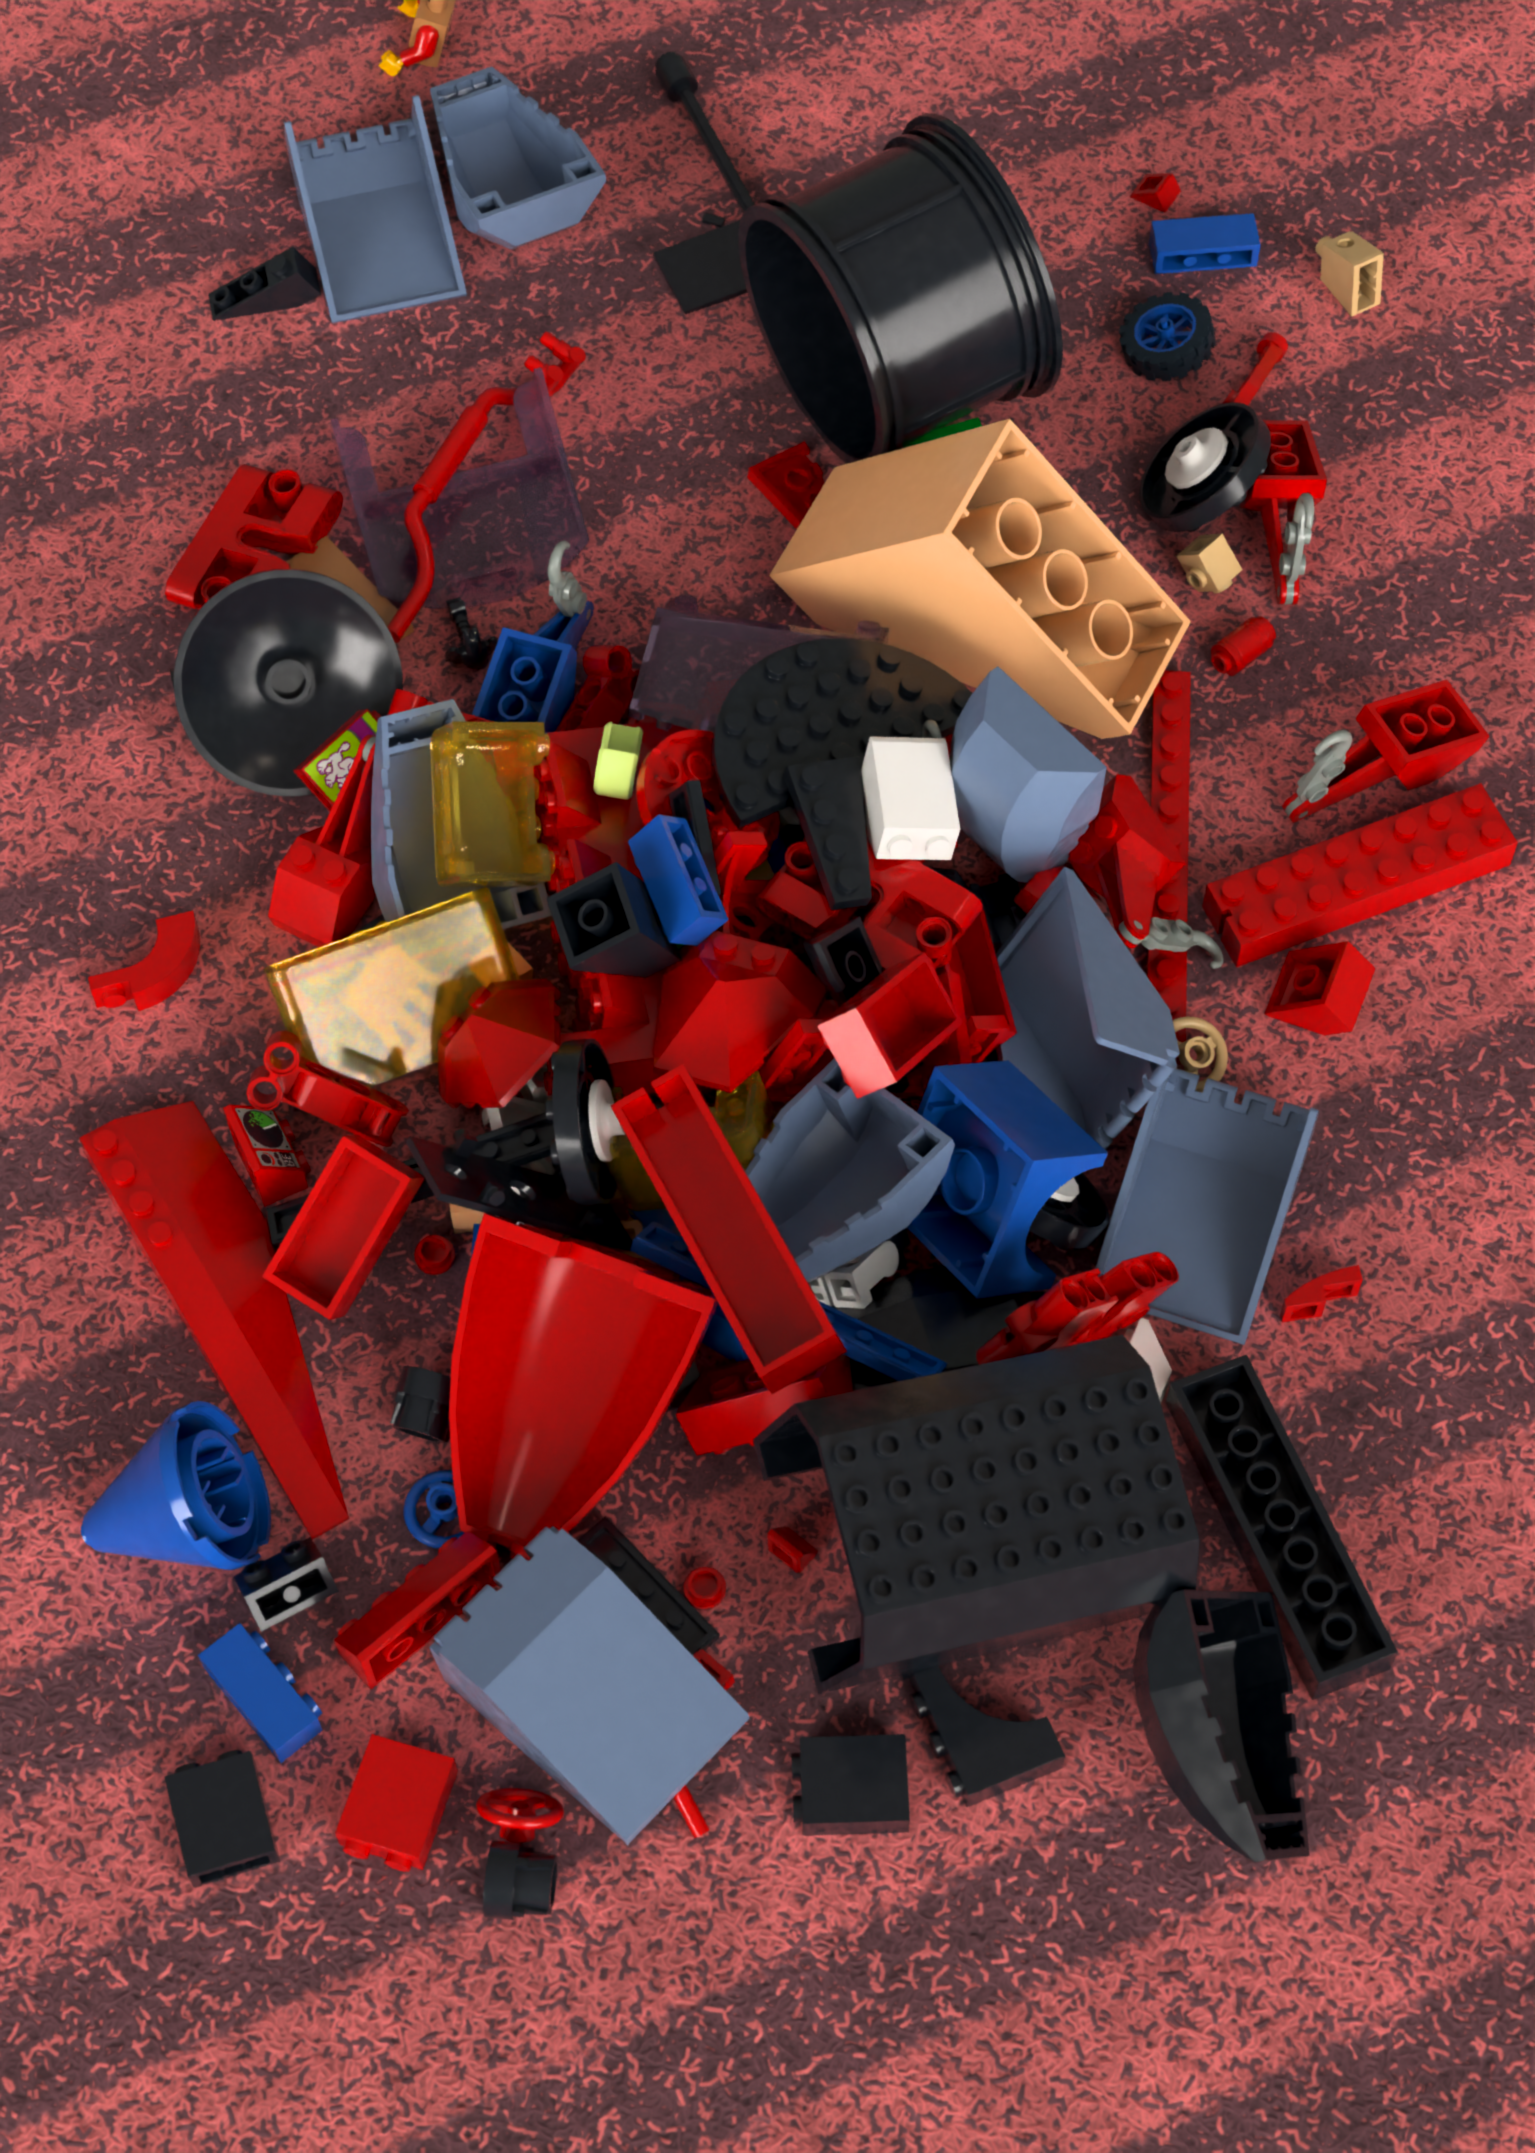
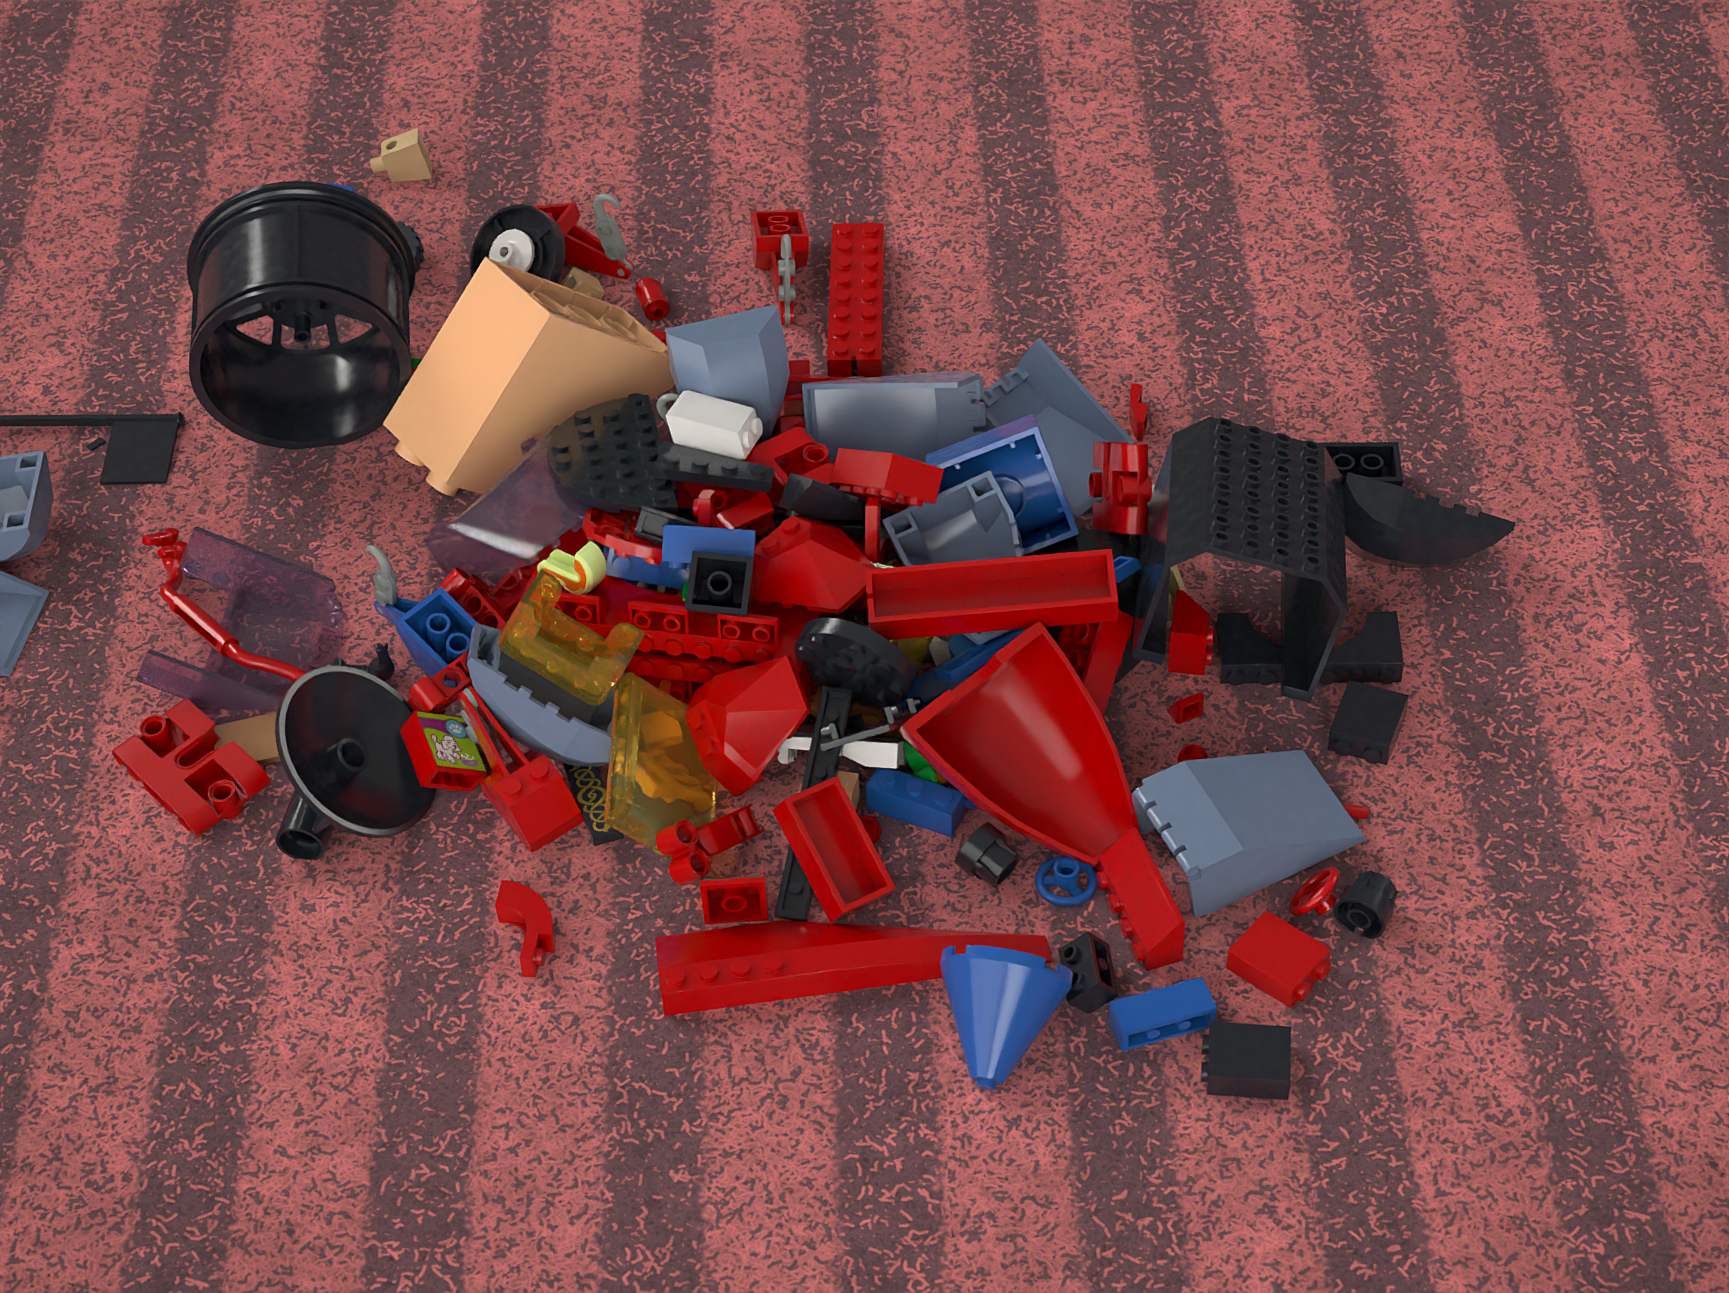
camera: 65 degrees left, 15 degrees down
(789, 482) = (366, 470): red wing -> none
(1270, 351) = (441, 224): red plate -> none
(1321, 988) = (924, 344): red slope -> none

